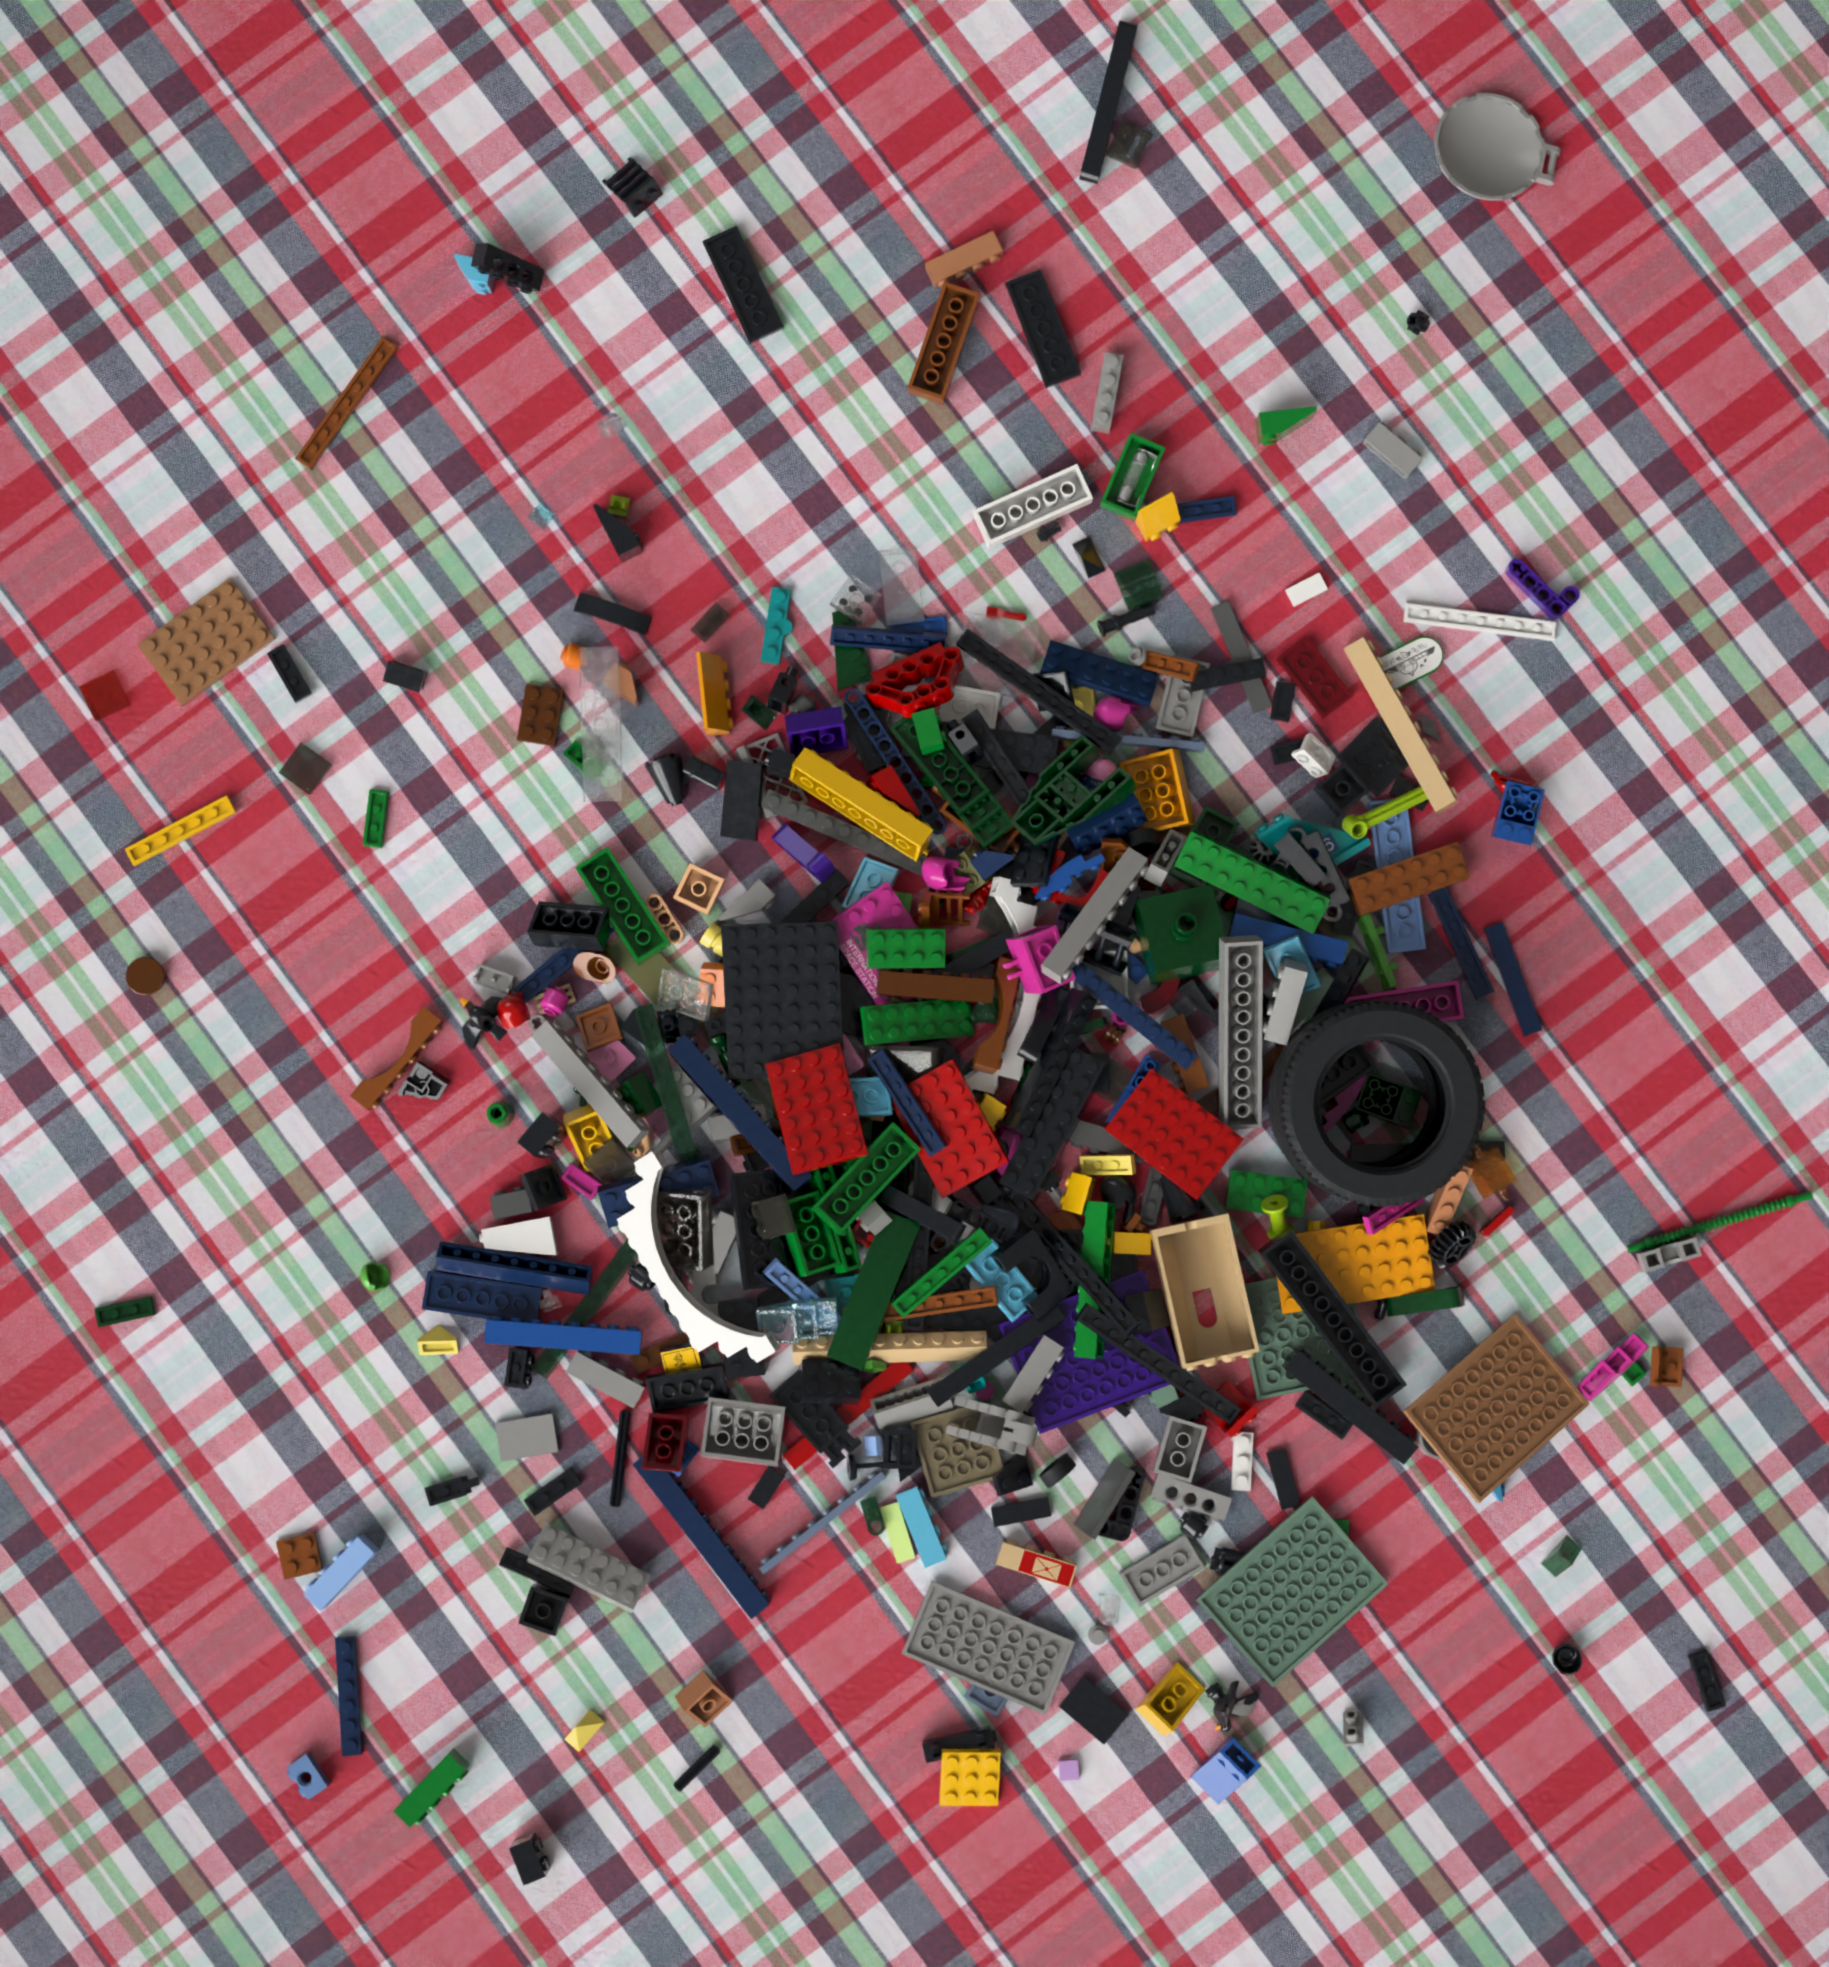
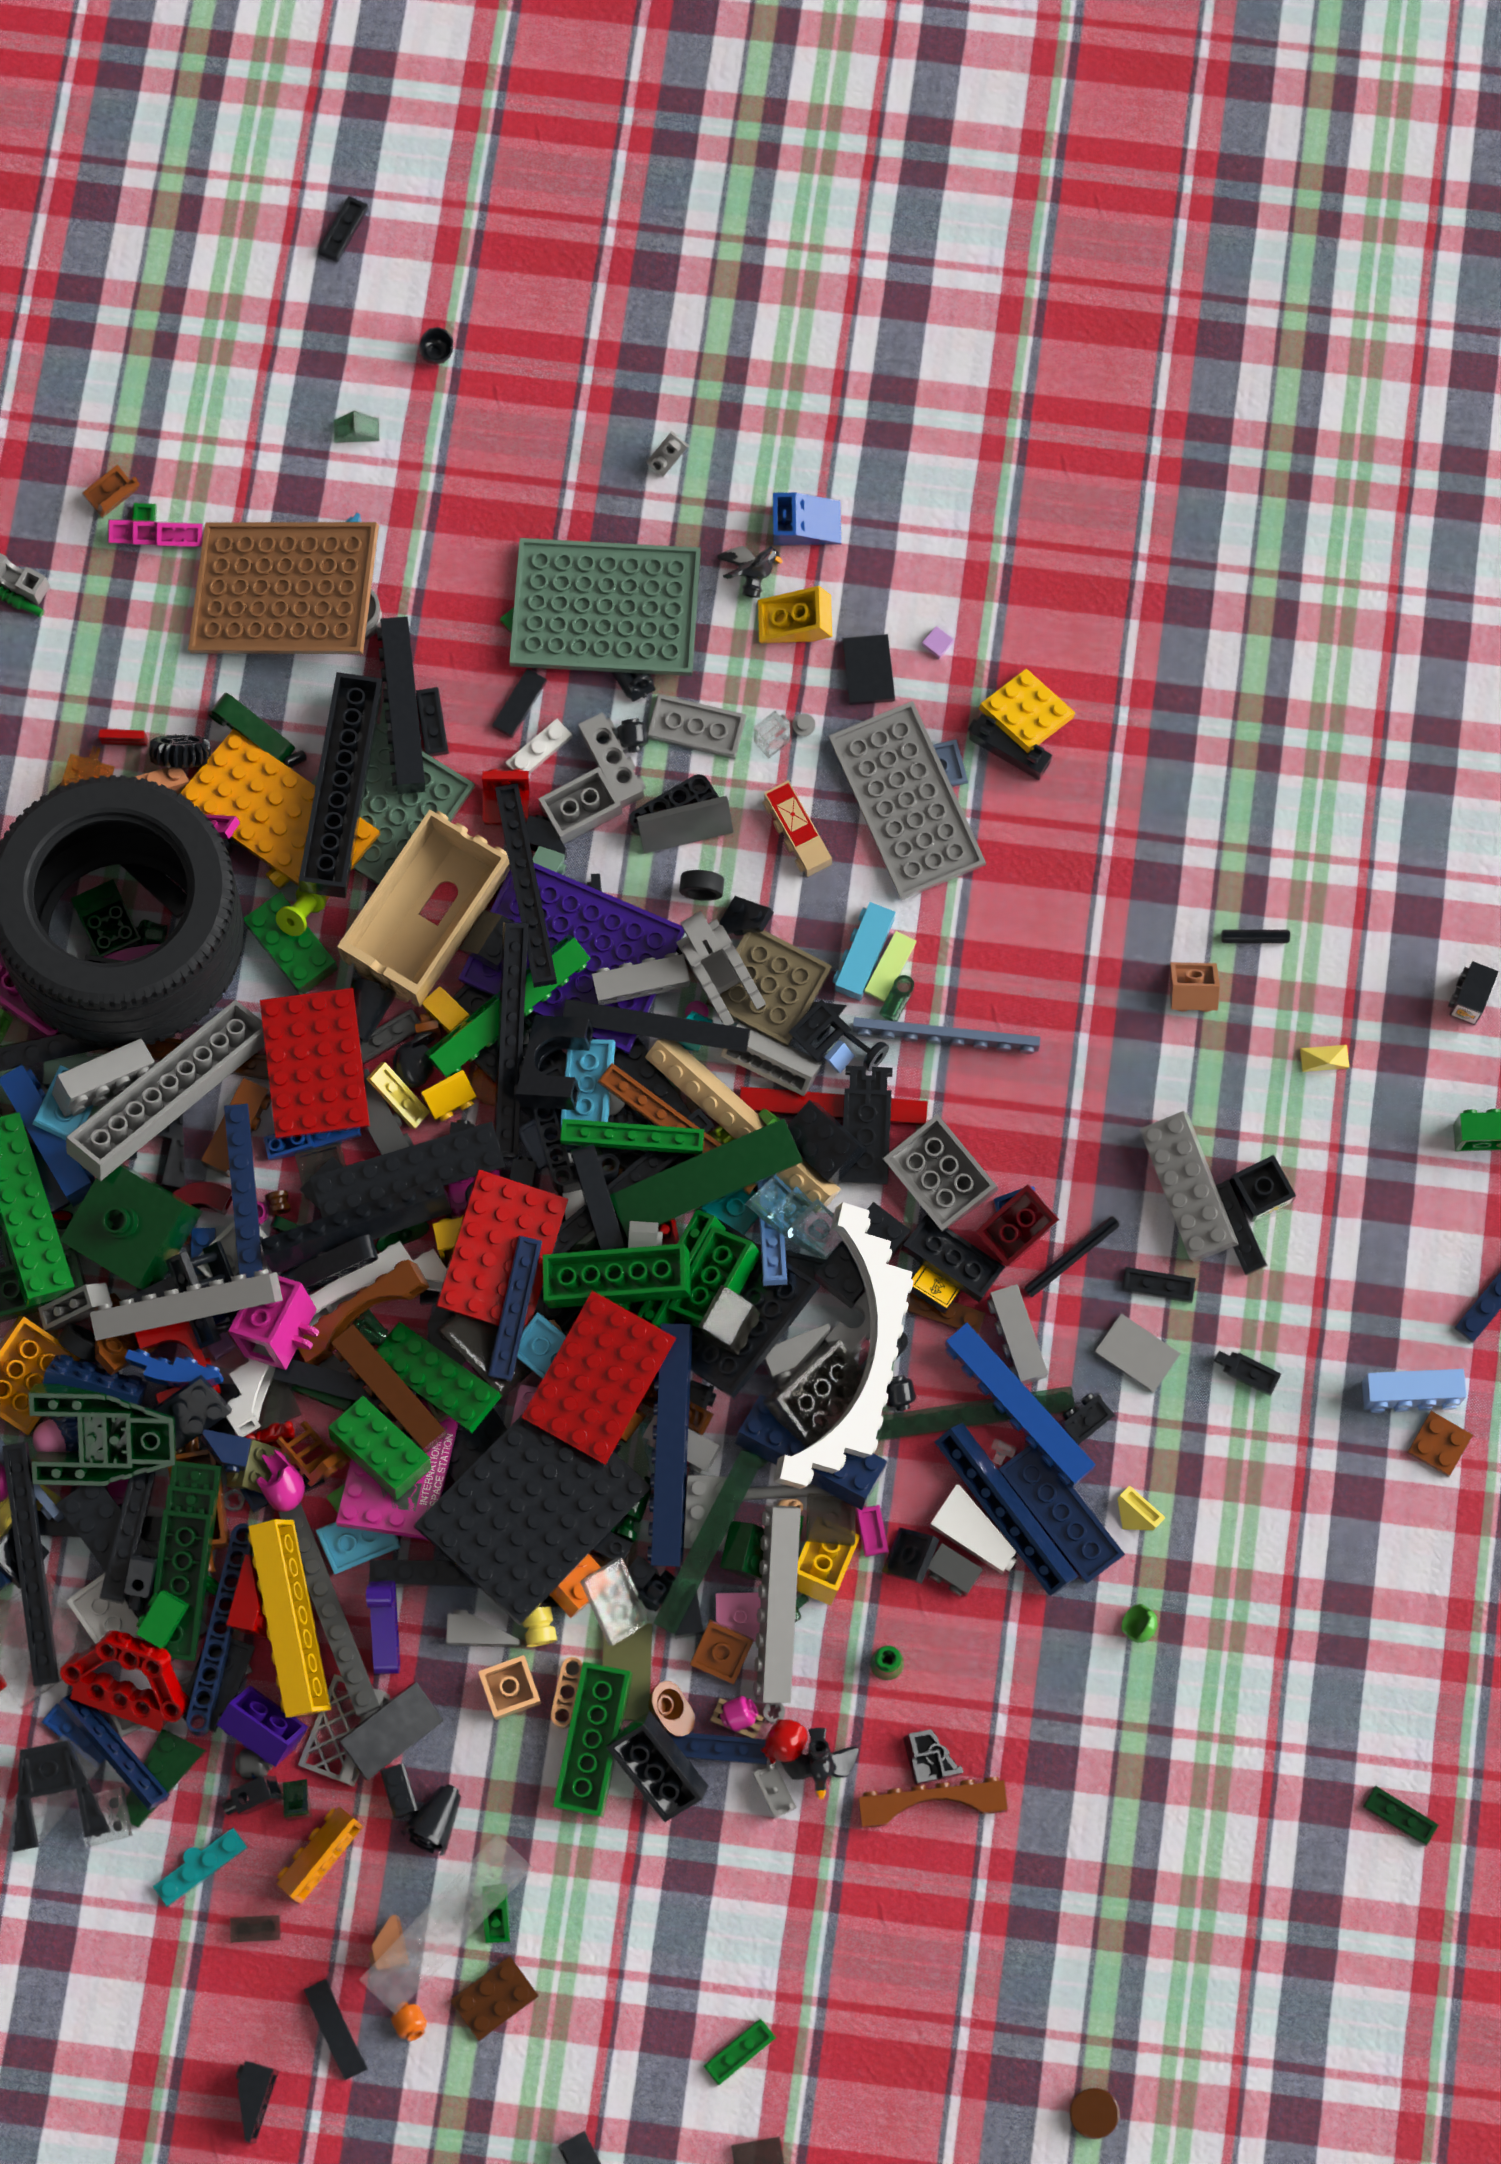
camera: 135 degrees left, 10 degrees down
(543, 1136) = (866, 1594): black brick -> none
(619, 506) = (228, 2127): lime tile -> none
(706, 1539) = (1062, 1116): dark blue brick -> none
(766, 1487) = (967, 1111): black tile -> none
(779, 763) = (323, 1727): black brick -> none
(909, 593) = (50, 1771): none -> black wing
(1021, 1511) = (767, 884): black tile -> none

